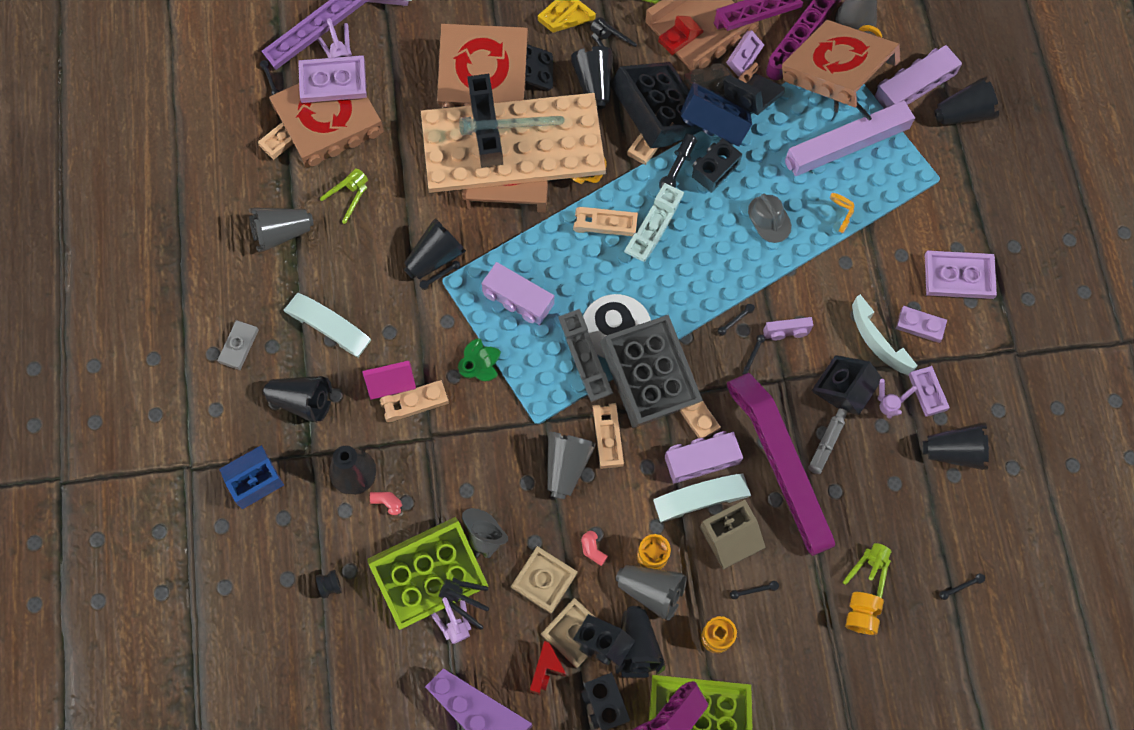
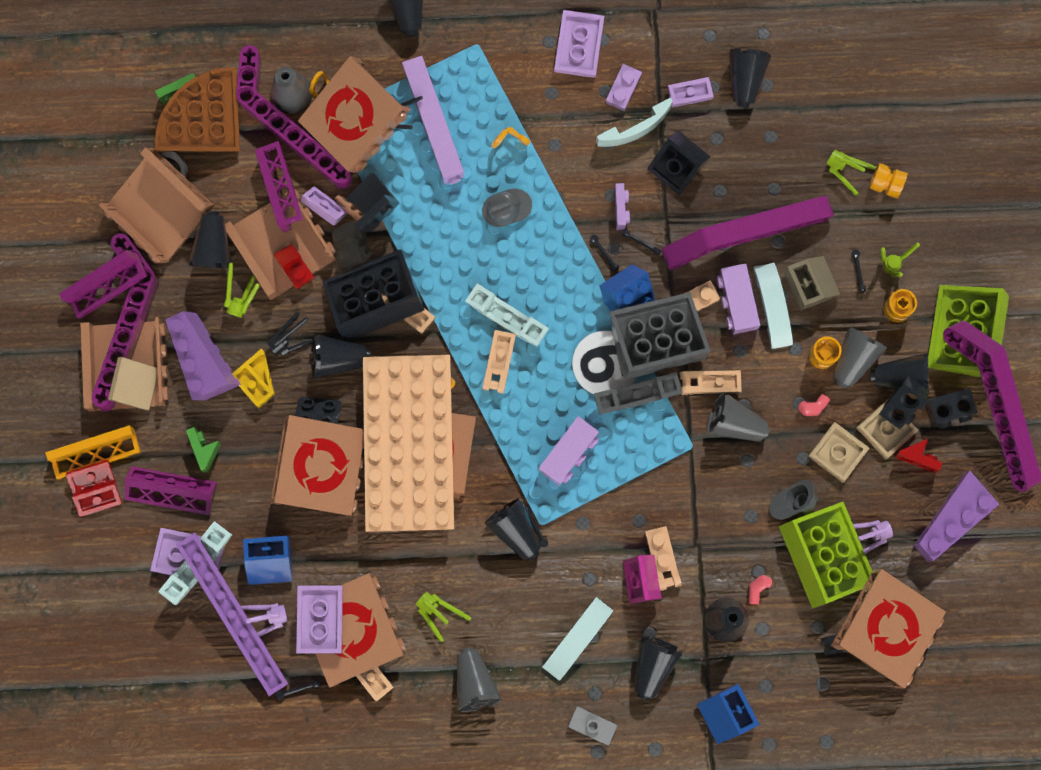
camera: 85 degrees left, 10 degrees up
(344, 641) = (889, 627): none -> nougat panel
(391, 37) = (268, 560): none -> blue slope
(453, 592) = (852, 531): black plant -> none
(469, 125) = (403, 480): clear light blue piece -> none
(482, 361) = (628, 491): green plate -> none
(483, 109) = (395, 465): black arch -> none
(683, 153) = (432, 279): black pin -> none
(698, 338) = (627, 289): none -> blue slope
(716, 115) = (398, 241): dark blue slope -> none
(720, 167) = (453, 246): black brick -> none
(768, 625) = (893, 262): none -> lime plant
(827, 442) = (730, 188): light grey piece -> none
(891, 403) = (700, 126): lavender plant -> none
(919, 78) = (370, 44): lavender brick -> none
(979, 578) = (860, 81): black hinge -> none

